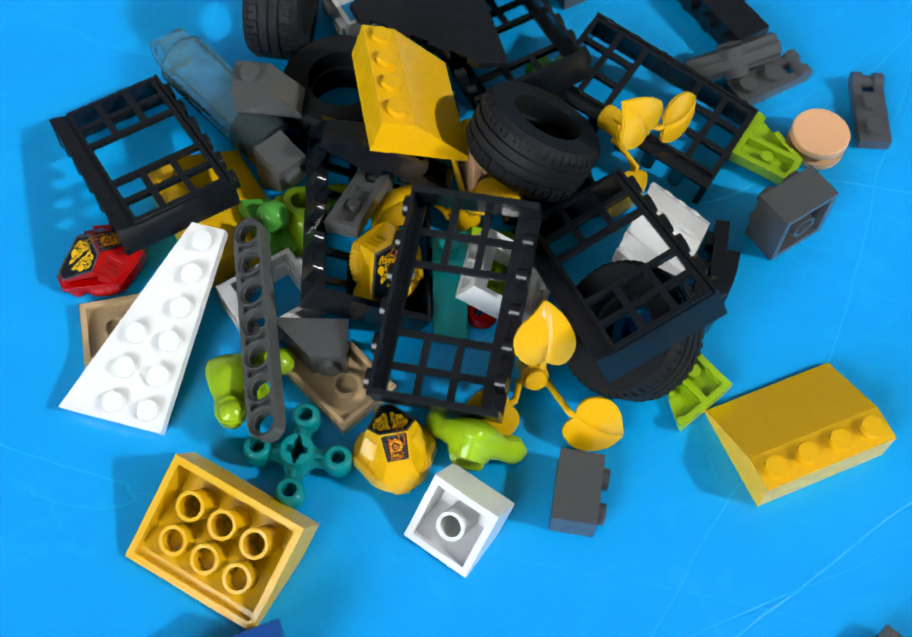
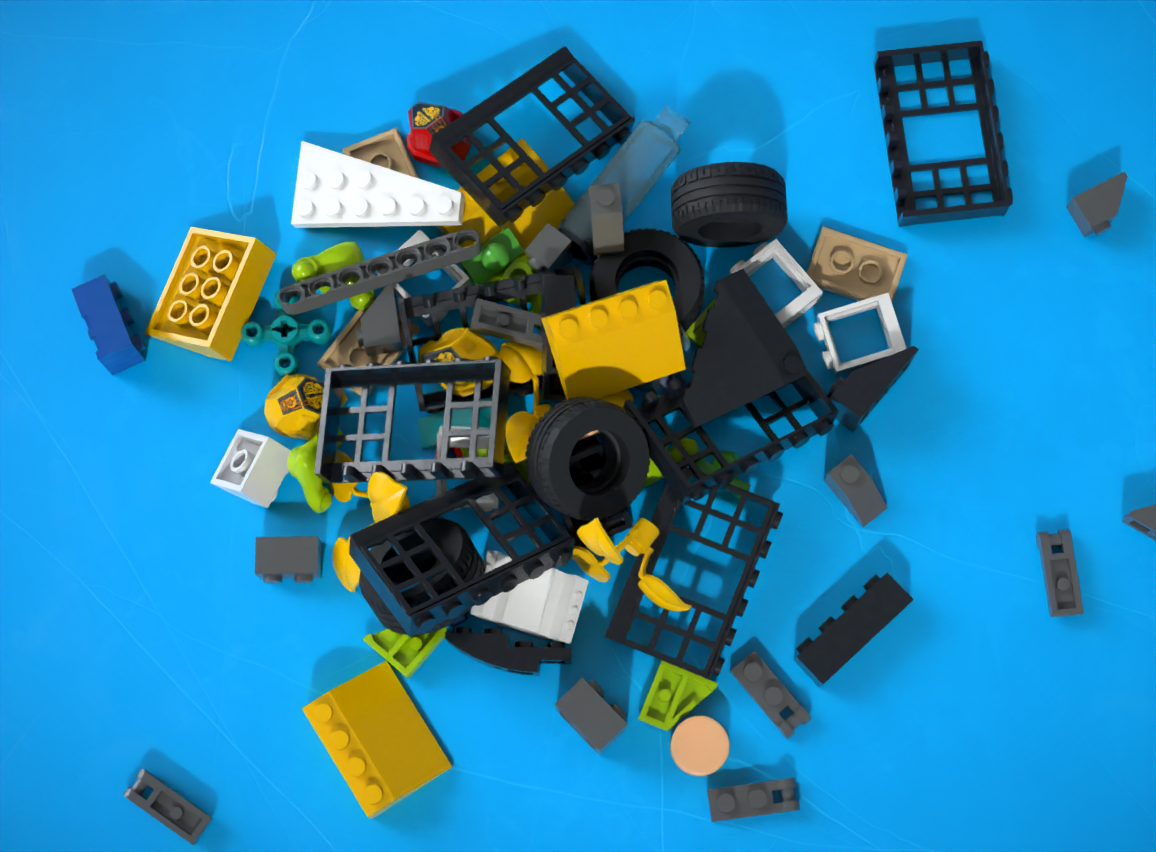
camera: 85 degrees right, 15 degrees up
(736, 57) = (776, 651): dark grey piece -> none

